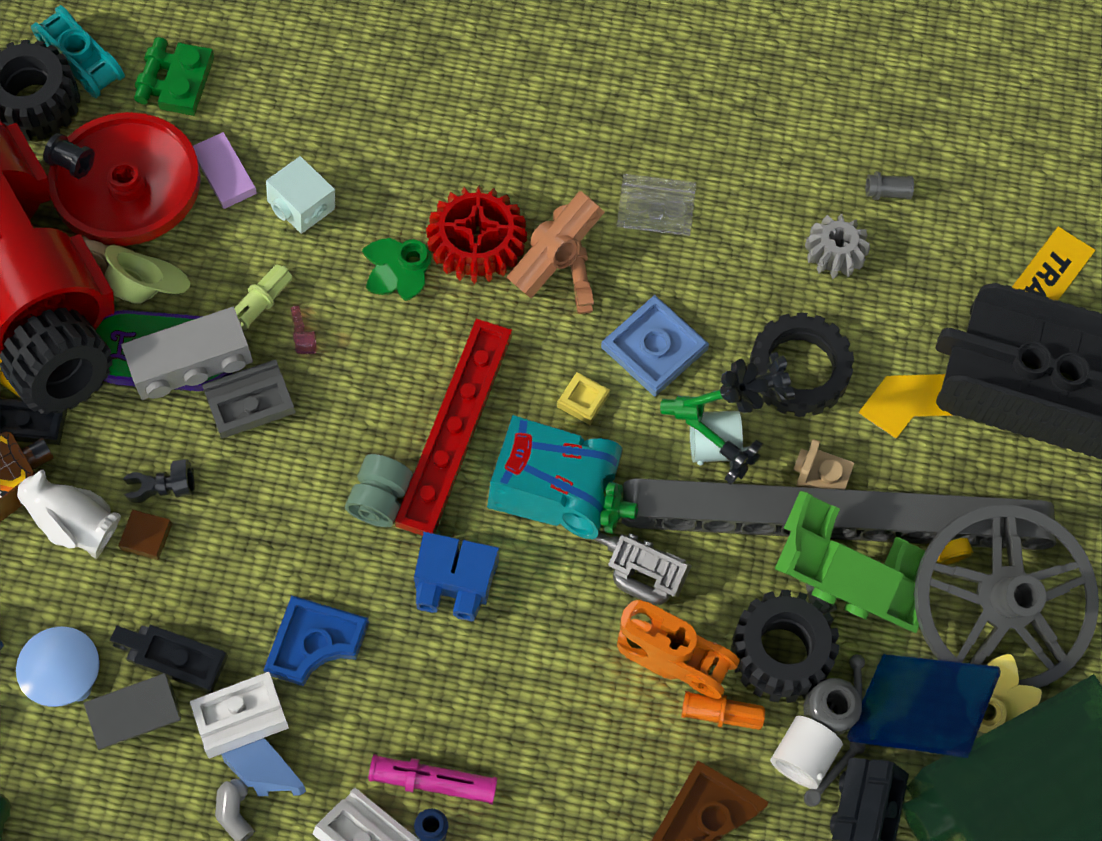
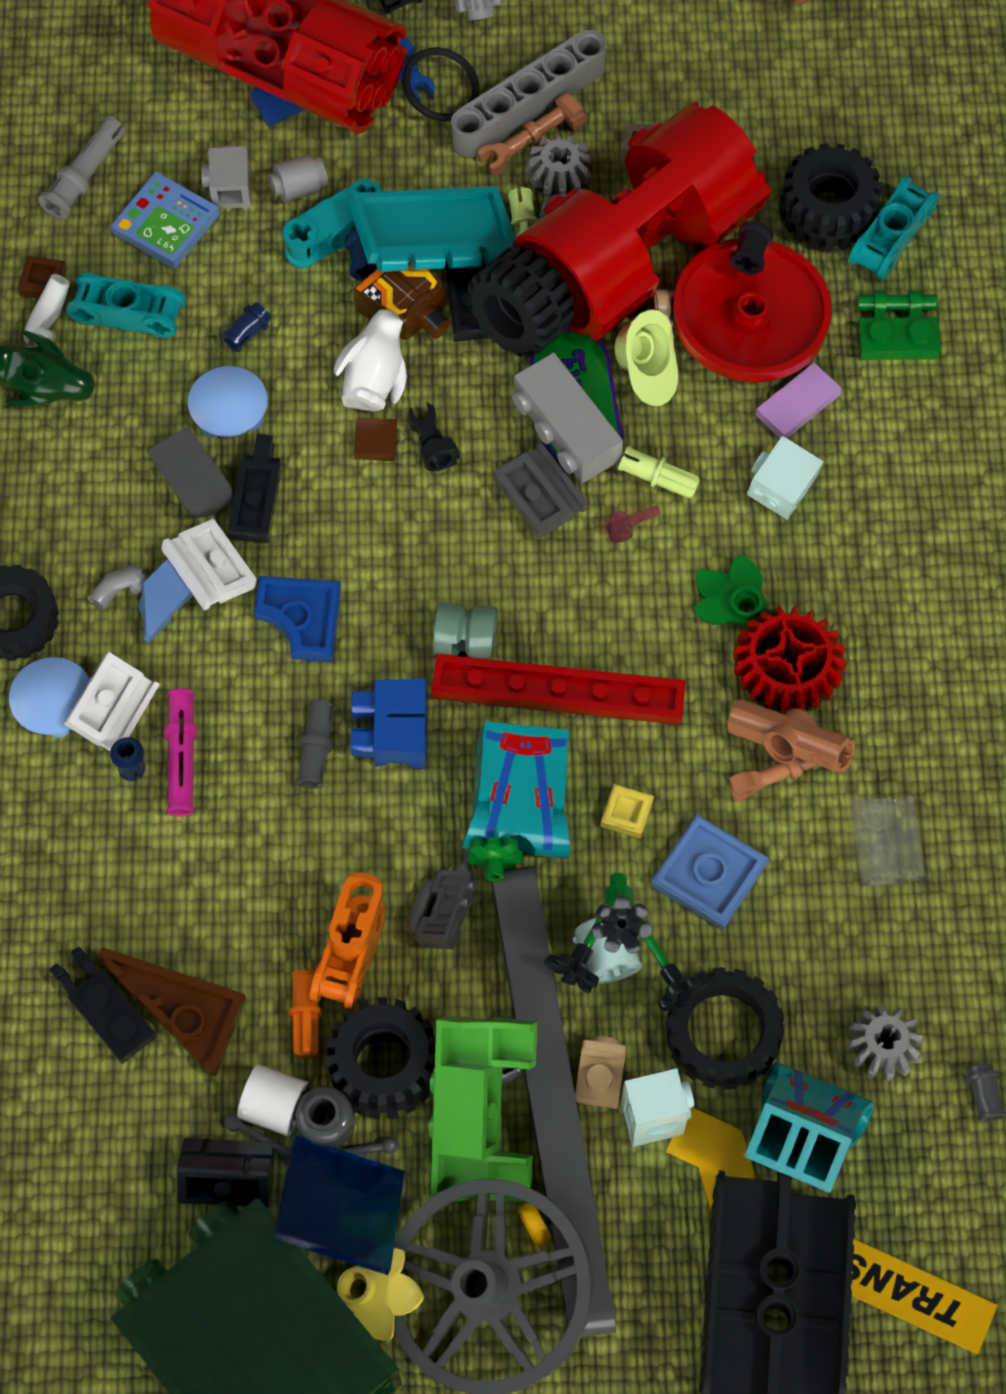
camera: 80 degrees right, 0 degrees up
(456, 650) = (315, 744): none -> dark grey pin
(873, 426) = (656, 1107): none -> light aqua brick
(912, 311) = (807, 1126): none -> teal piece

